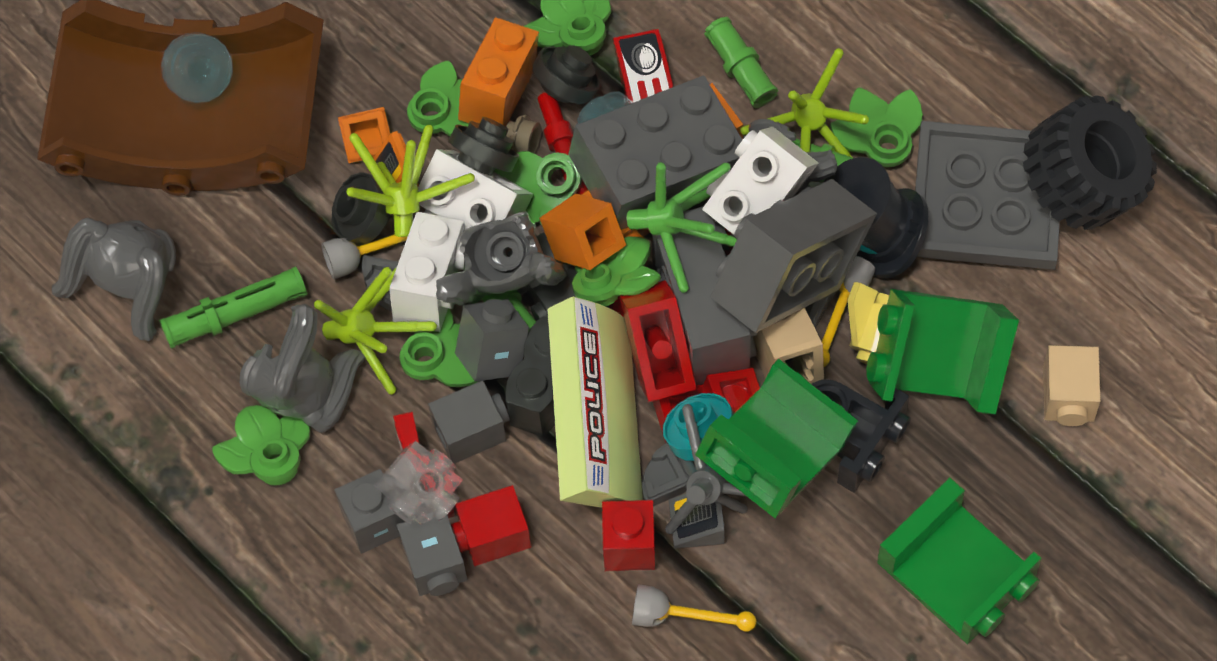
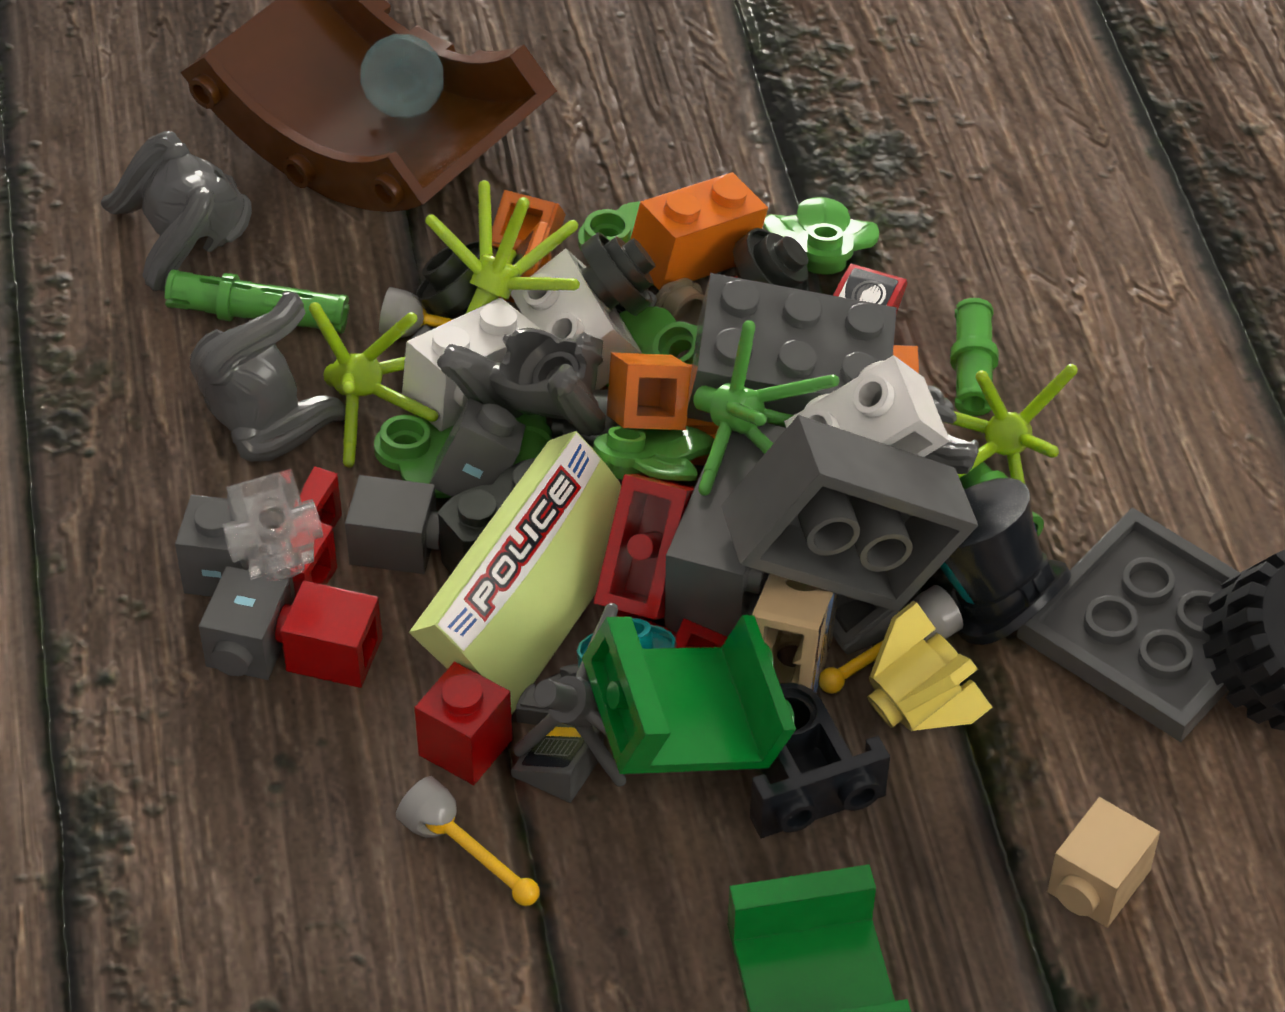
camera: 30 degrees right, 15 degrees down
(264, 445) = (175, 438): bright green plate -> none
(887, 124) = (1083, 497): bright green plate -> none
(942, 348) = (961, 721): green panel -> none

